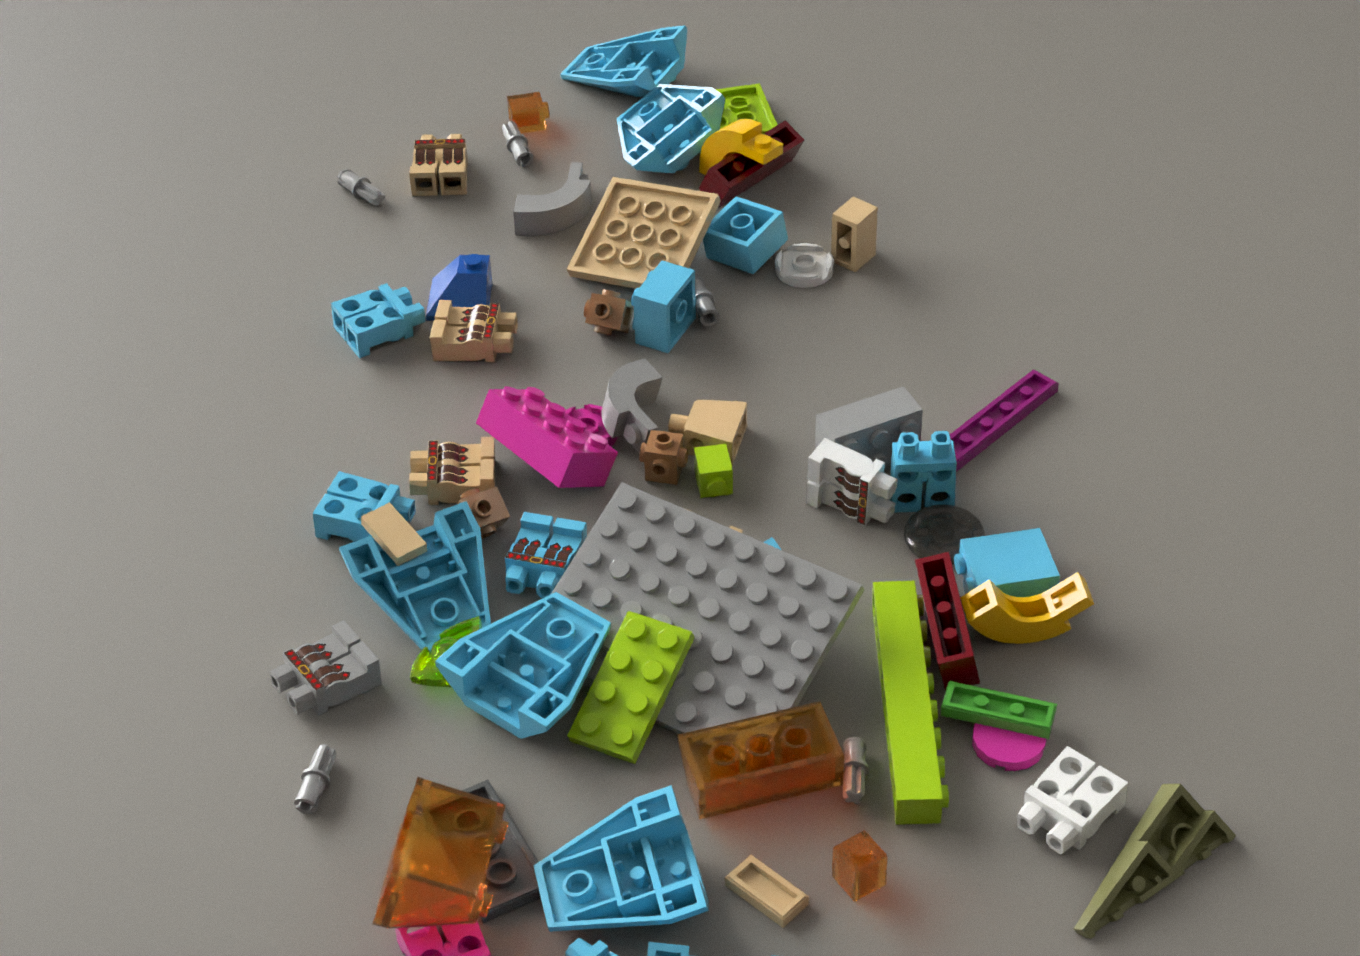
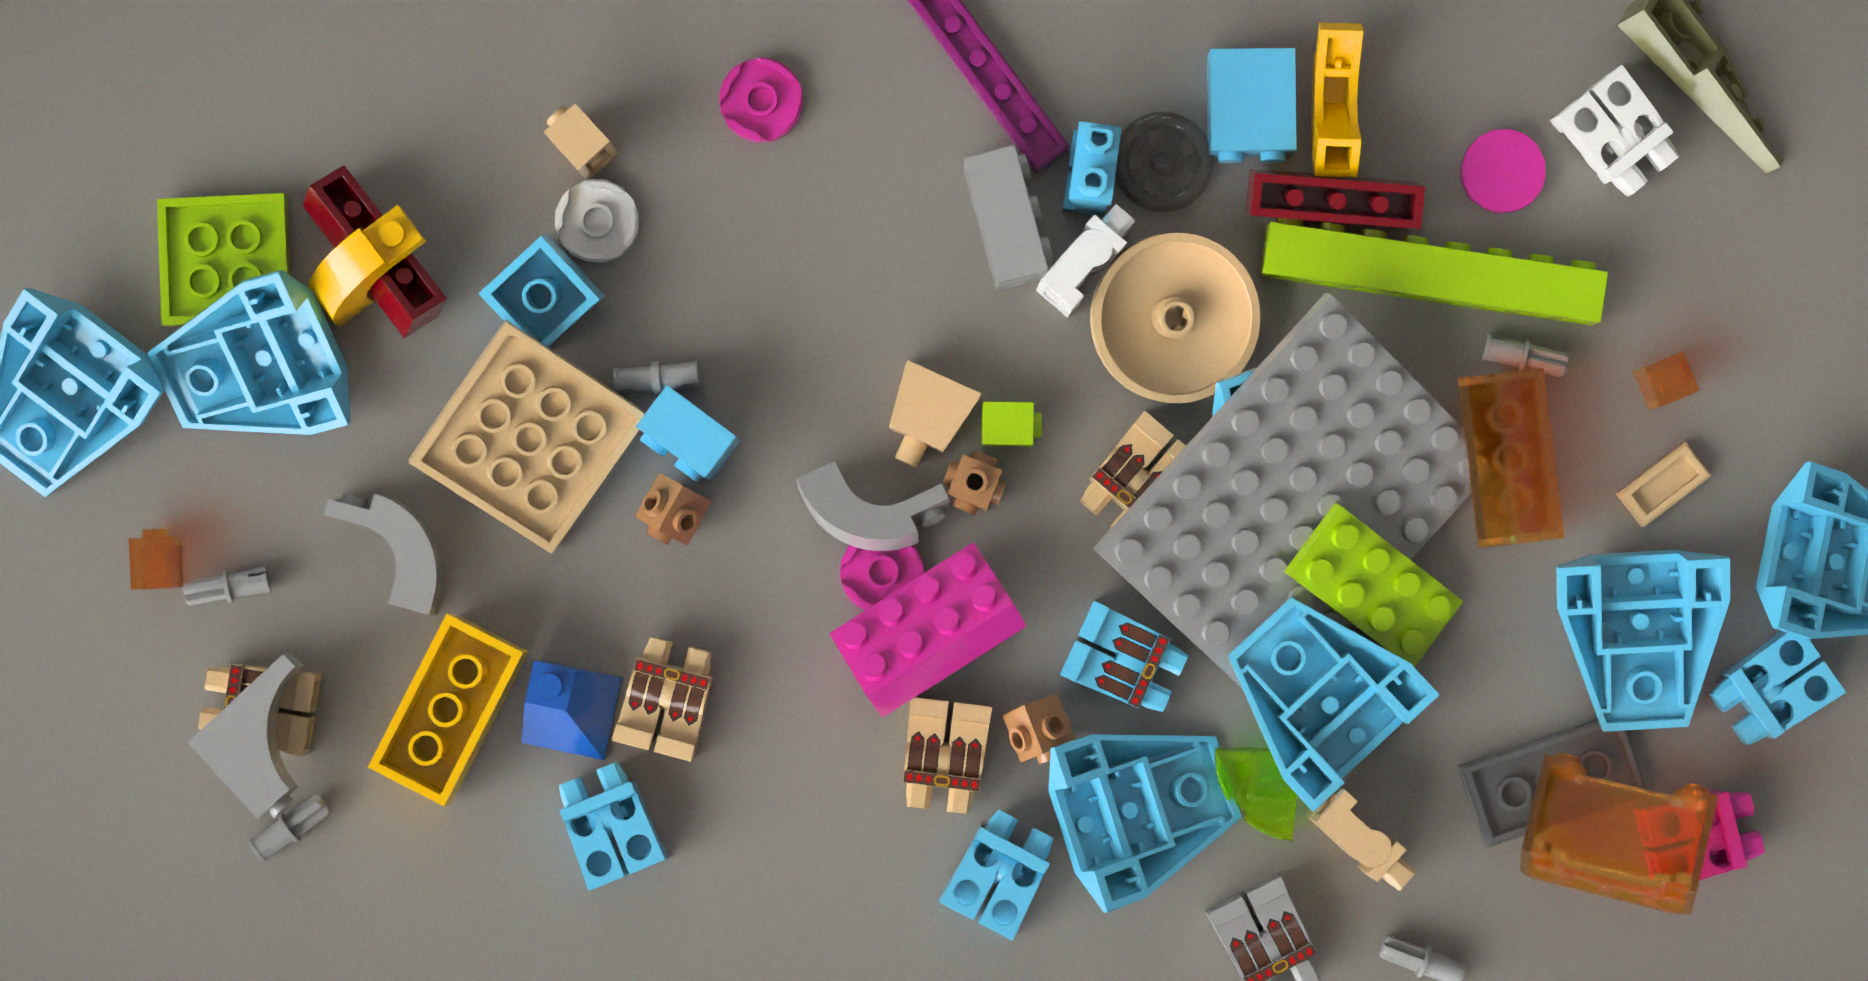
camera: 80 degrees left, 45 degrees up
(393, 534) = (1077, 842): tan tile -> none
(416, 139) = (244, 746): none -> light grey arch
(417, 704) = (1376, 852): none -> tan hips
(445, 228) = (448, 709): none -> yellow brick
(829, 528) = (1174, 317): none -> tan dish
(916, 327) = (761, 100): none -> dark pink tile
(998, 709) = (1473, 173): bright green tile -> none

